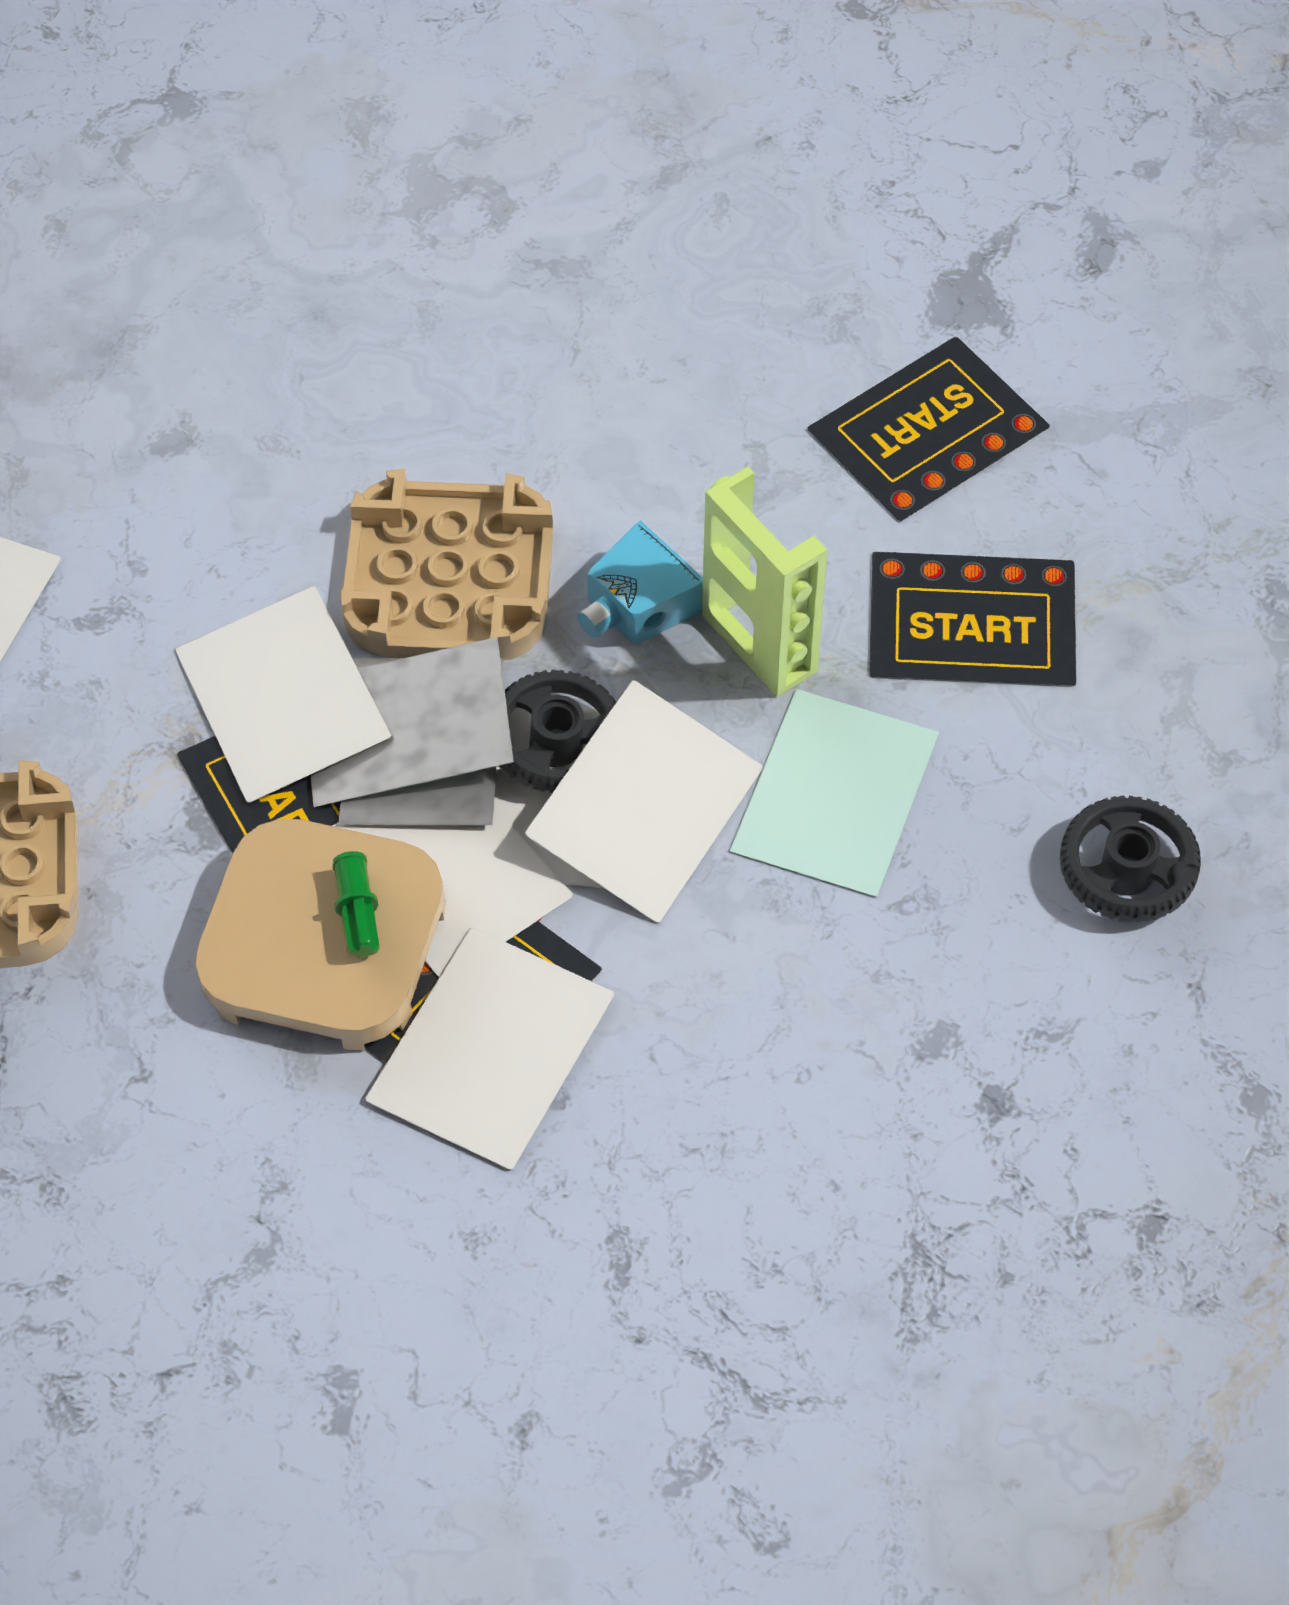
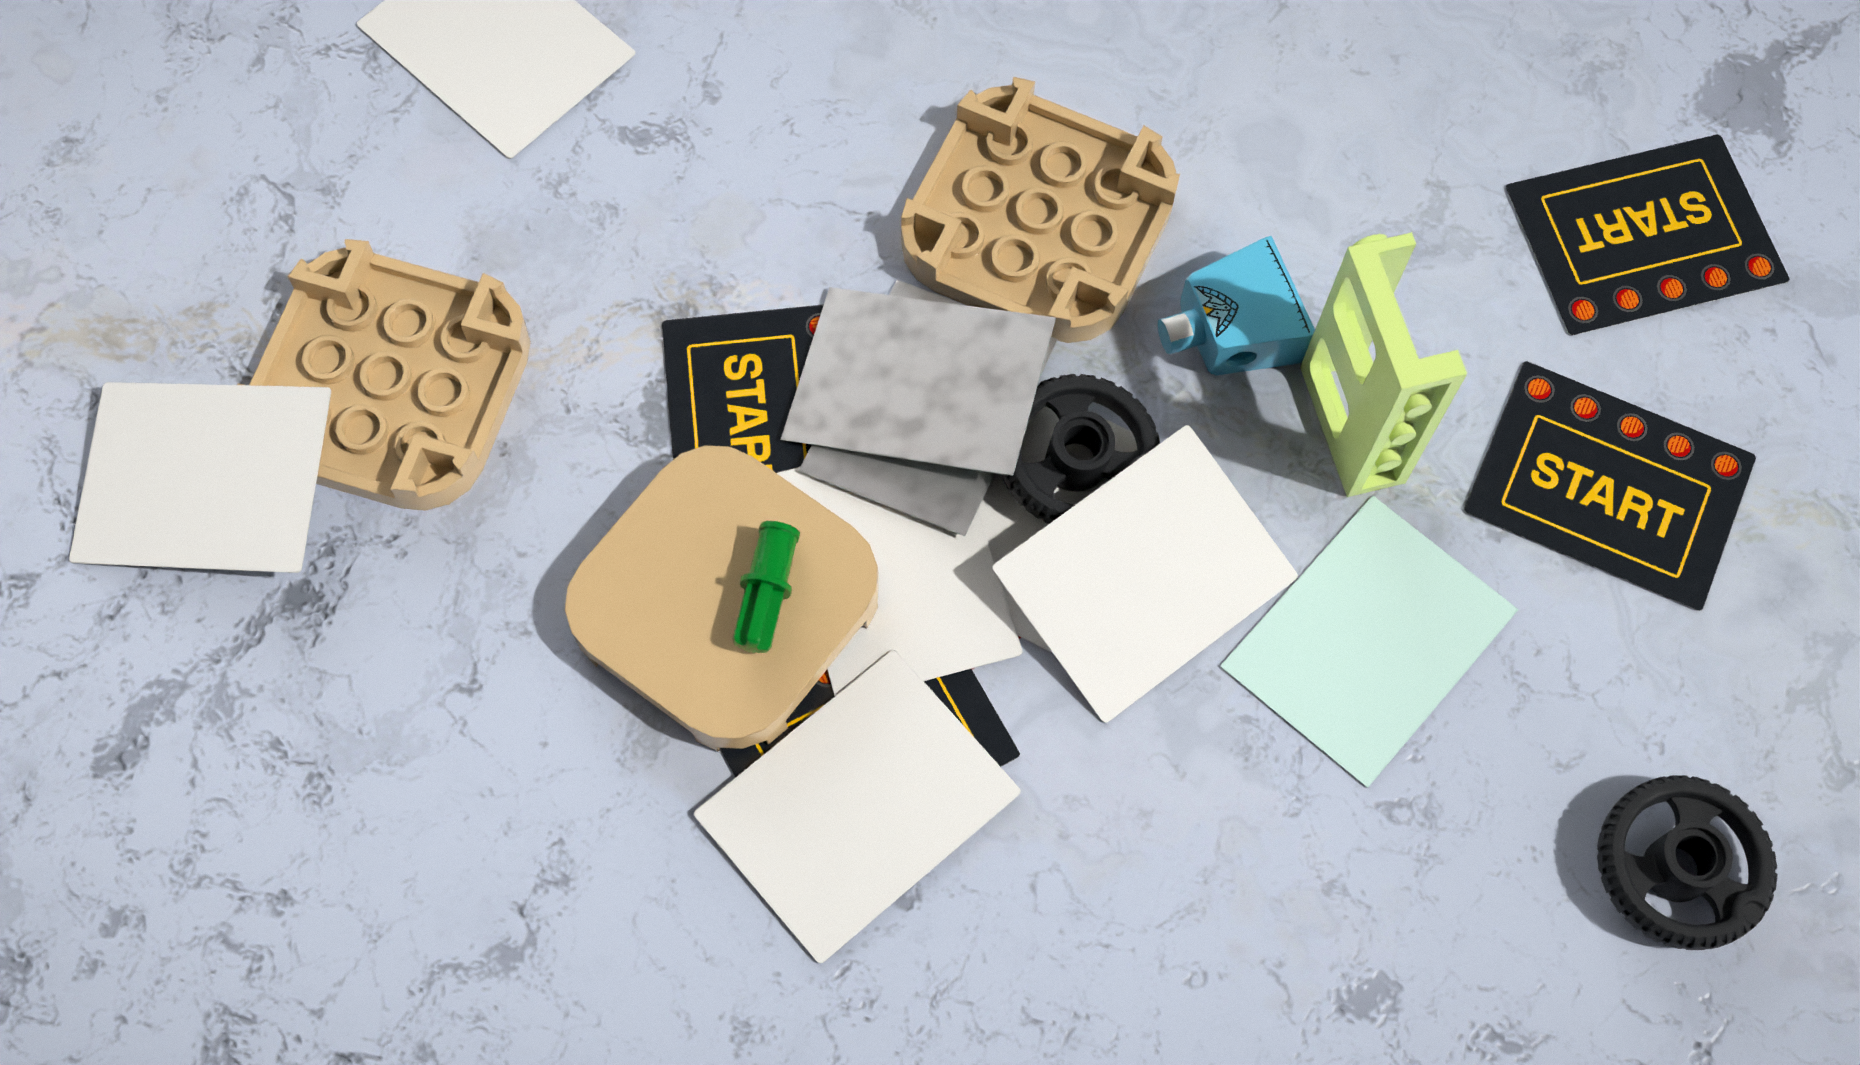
camera: 20 degrees right, 10 degrees up
(282, 694) = (800, 296): white sticker -> none

